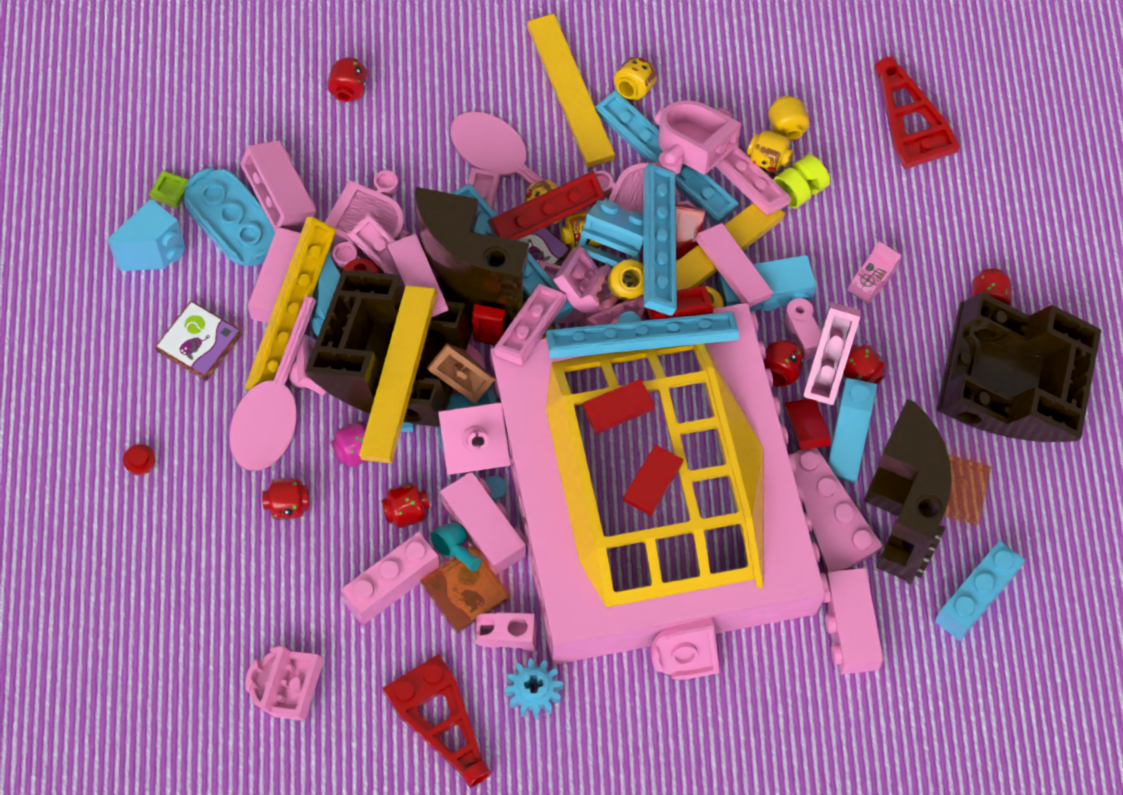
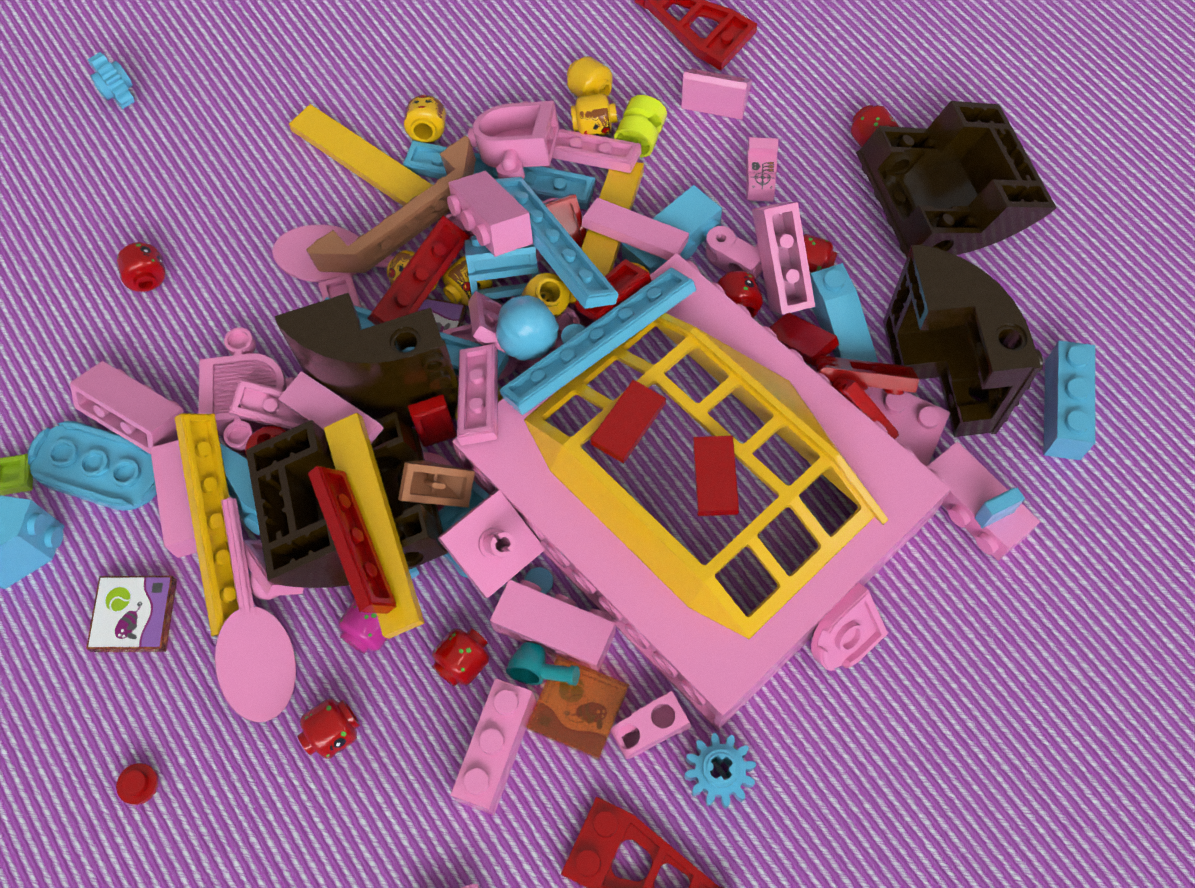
camera: 25 degrees left, 0 degrees up
(376, 376) = (352, 541): none -> red tile
(555, 159) = (369, 249): none -> nougat slope
(596, 295) = (526, 328): none -> medium azure hair
(626, 190) = (490, 213): none -> bright pink brick
(808, 501) = (855, 394): none -> red tile
(831, 478) = (889, 377): none -> red hinge
(855, 629) = (999, 507): none -> medium azure tile
(885, 185) = (715, 93): none -> bright pink slope

